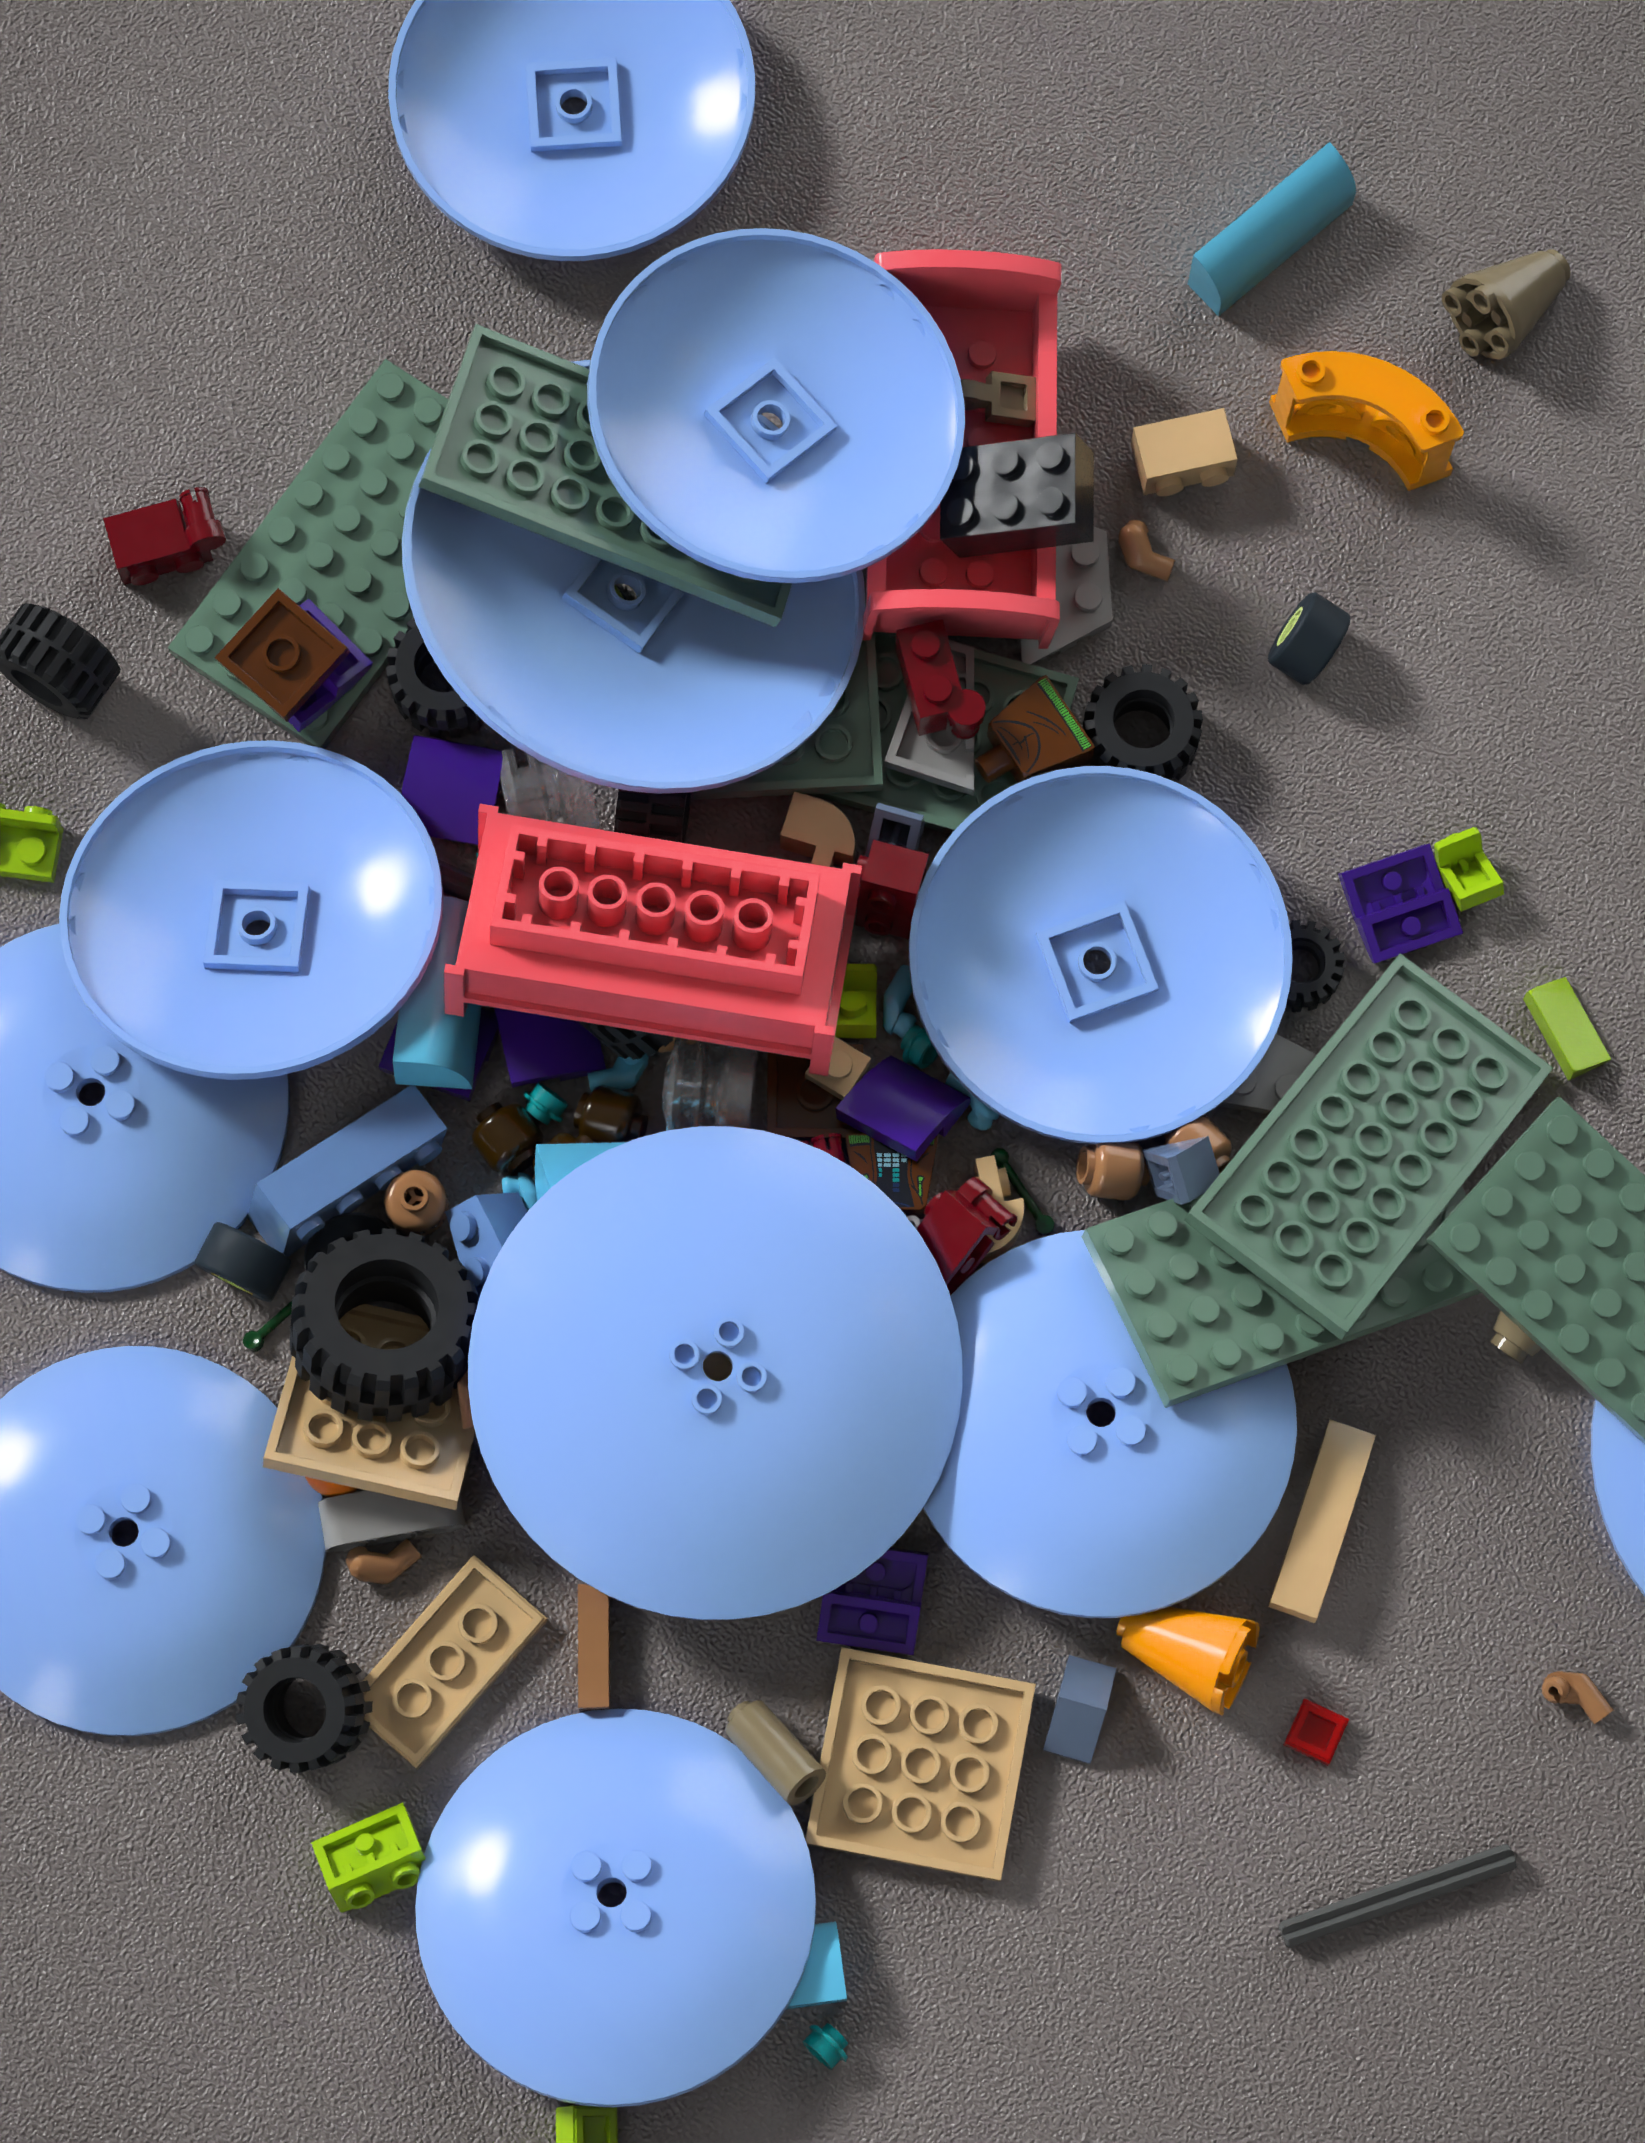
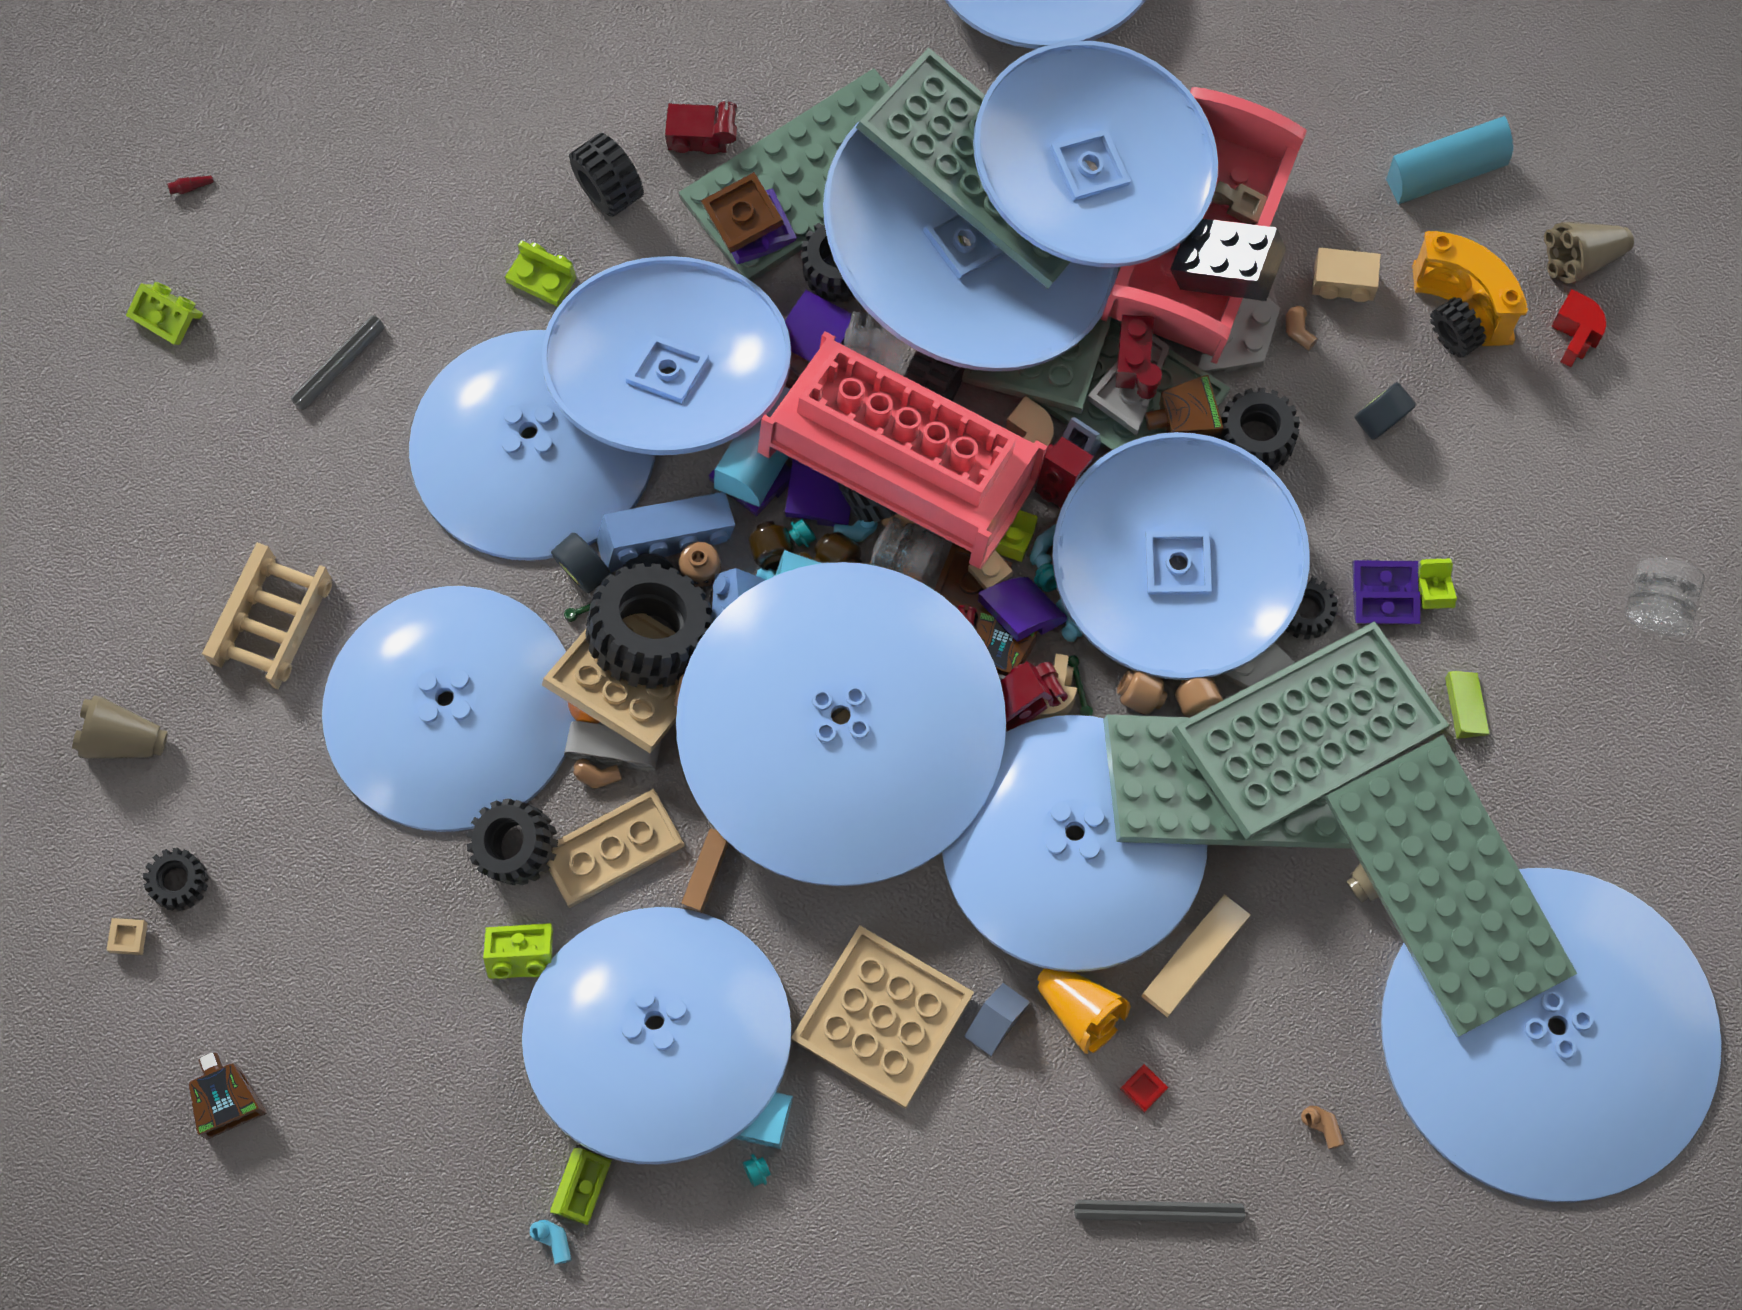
camera: 25 degrees right, 5 degrees down
(774, 1751) = (792, 974): dark tan brick -> none
(878, 1605) = (892, 906): dark purple slope -> none
(1182, 1169) = (1184, 701): sand blue slope -> none
(1368, 480) = (1457, 327): none -> black tyre
(1539, 409) = (1583, 321): none -> red brick

